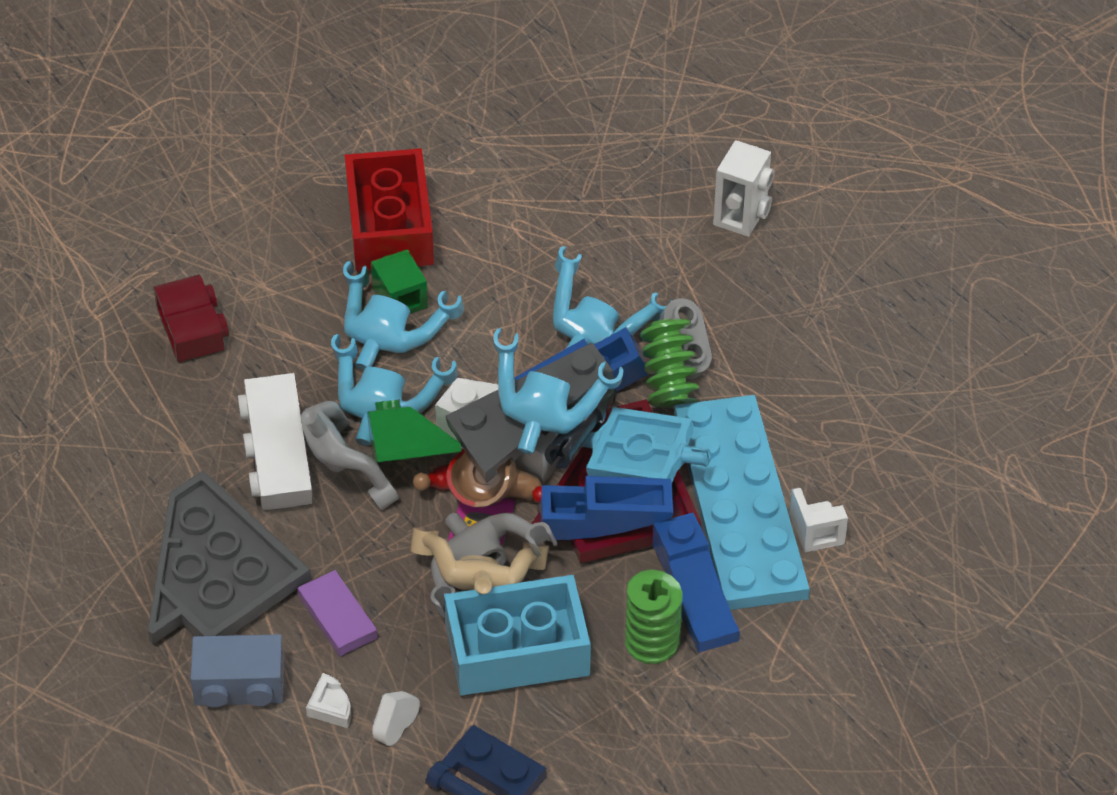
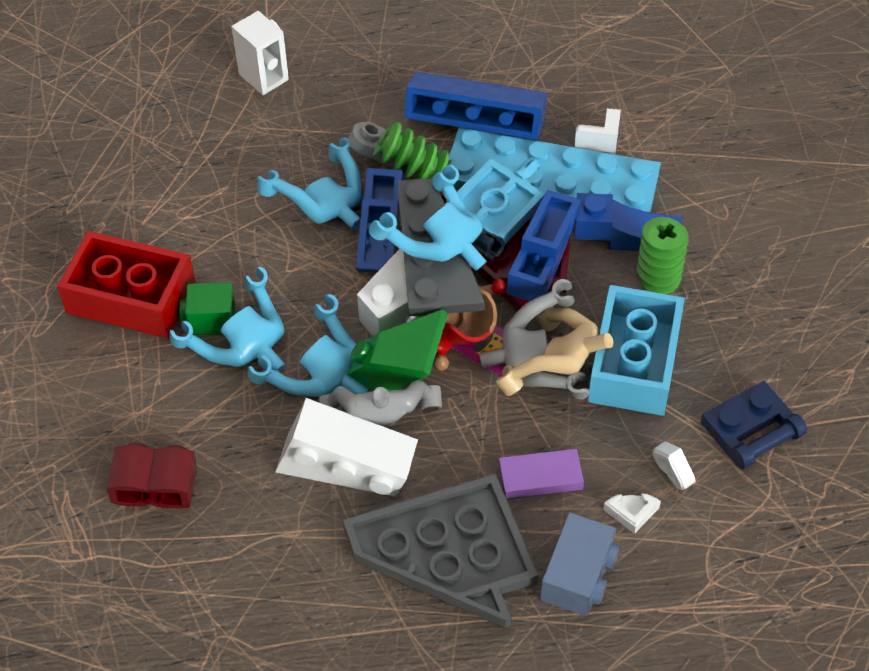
camera: 65 degrees left, 5 degrees up
(787, 395) = (476, 105): none -> blue brick

